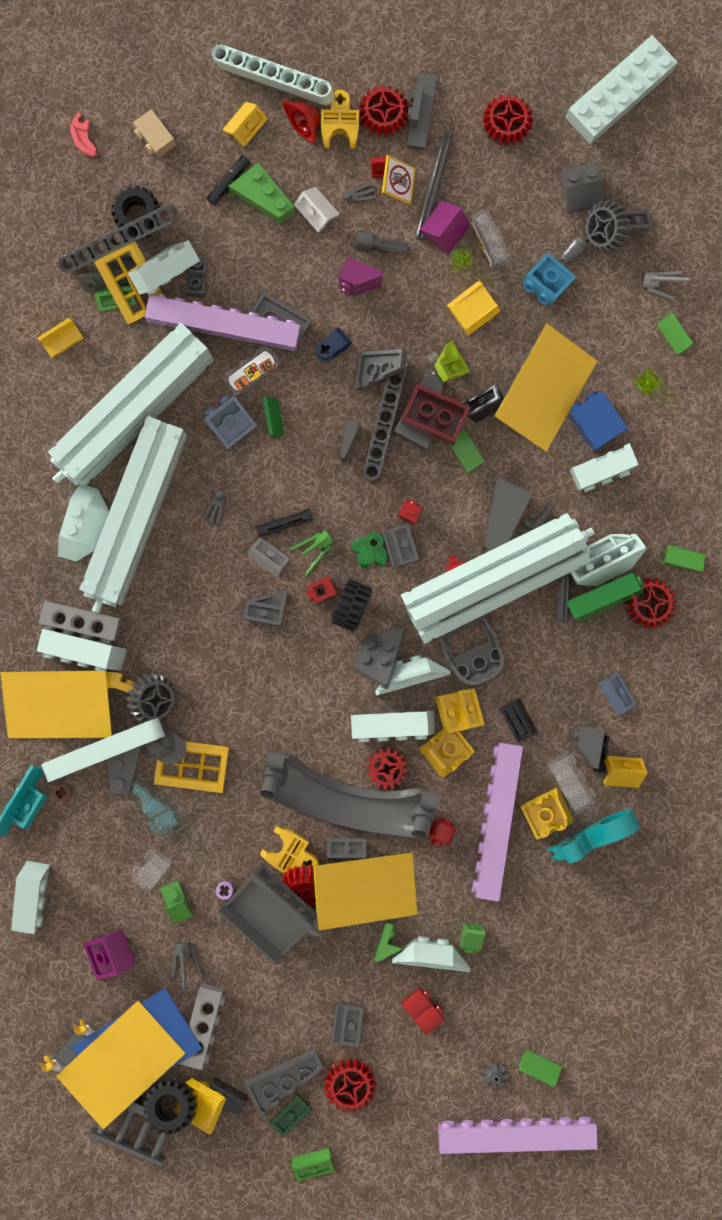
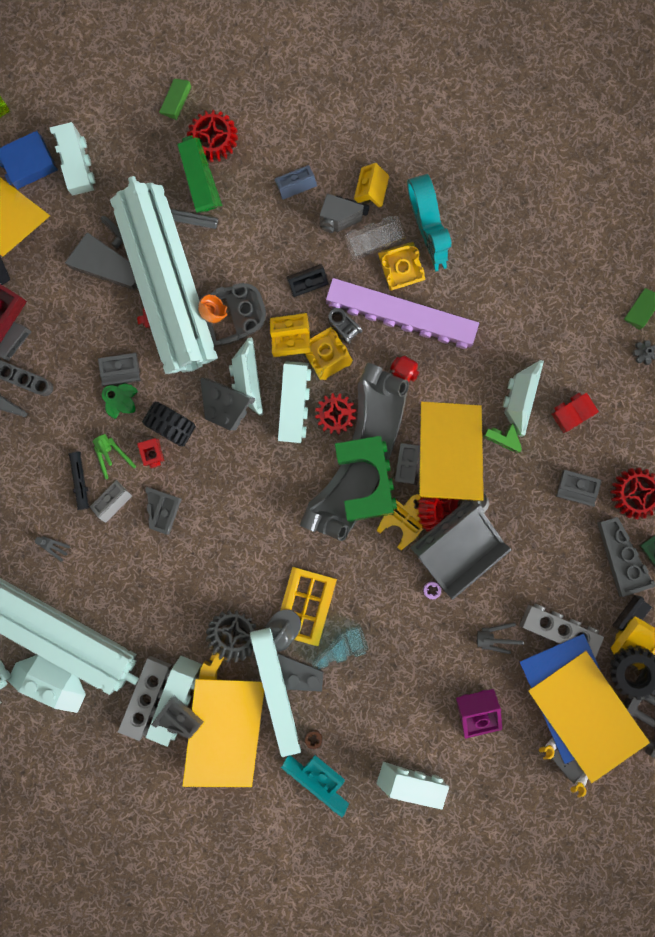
camera: 75 degrees left, 0 degrees up
(64, 659) = (178, 719): none -> dark grey wing
(151, 869) = (401, 659): clear brick -> none
(176, 902) = (437, 640): bright green slope -> none
(353, 812) = (370, 451): none -> green arch
(410, 511) = (87, 354): red brick -> none
(467, 452) = (37, 291): bright green slope -> none
(472, 631) = (212, 309): none -> orange hair
(472, 937) = (510, 354): bright green slope -> none
(476, 765) = (344, 326): none -> dark grey piece
(609, 559) = (162, 166): light aqua wedge -> none

